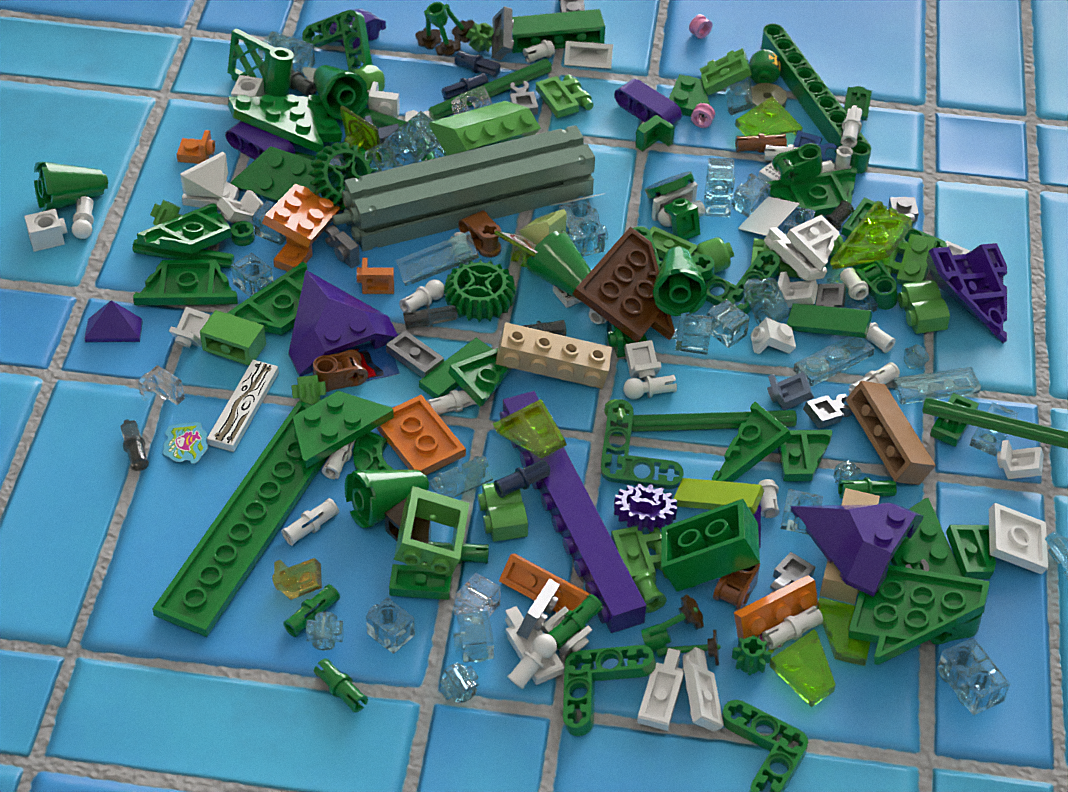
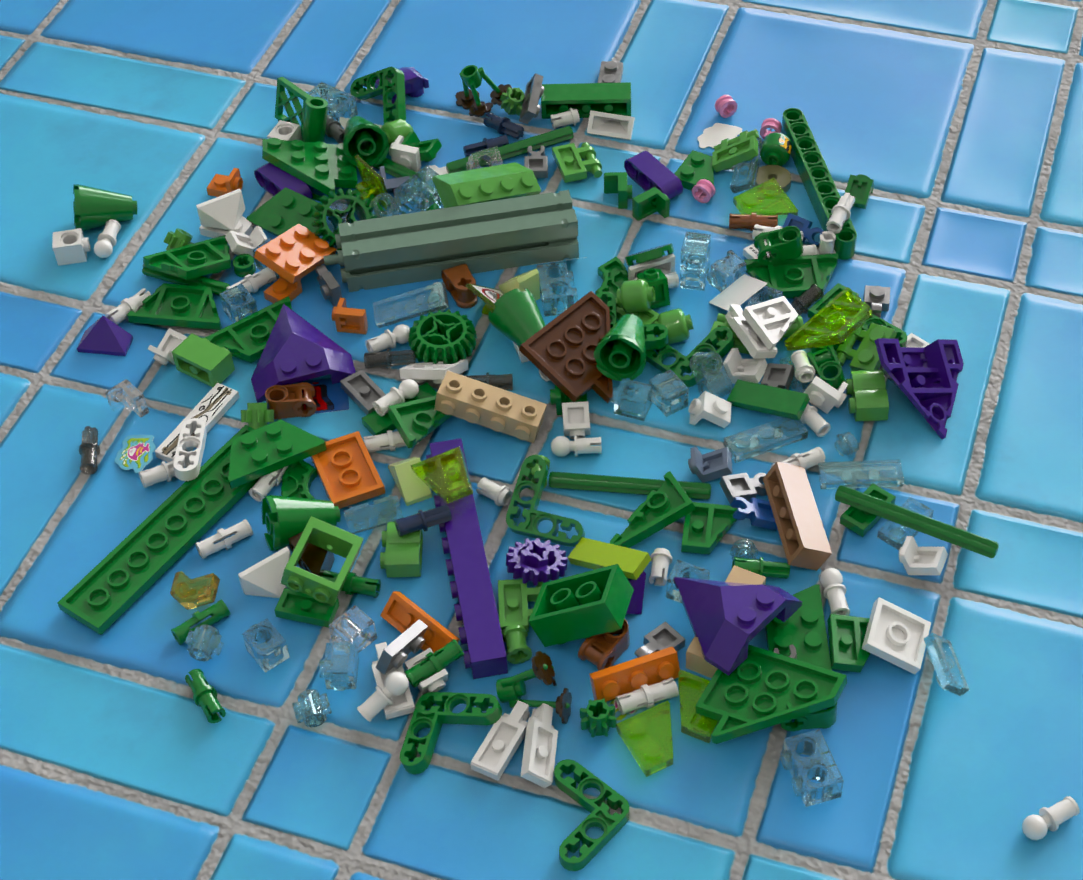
camera: 15 degrees right, 0 degrees up
(130, 286) = (133, 303): none -> white pin
(225, 458) = (158, 474): none -> white axle
(243, 440) = (194, 457): none -> white beam
(262, 247) = (257, 280): none -> white pin
(370, 555) = (265, 576): none -> white slope
(406, 92) = (428, 148): none -> green bracket
(452, 354) = (407, 390): none -> white pin
(486, 440) = (409, 485): none -> yellowish green slope
(488, 326) = (428, 371): none -> white wing
(580, 442) = (500, 494): none -> white pin
(616, 115) = (617, 183): none -> green bracket
(636, 211) = (613, 275): none -> green tile
(670, 228) = (635, 296): none -> bright green head
(698, 56) = (714, 135): none -> white sticker
(752, 41) = (770, 123): none -> bright pink bush
(849, 432) = (756, 510): none -> blue plate
(884, 310) = (824, 395): none -> white bracket
(945, 503) = (835, 591): none -> white pin

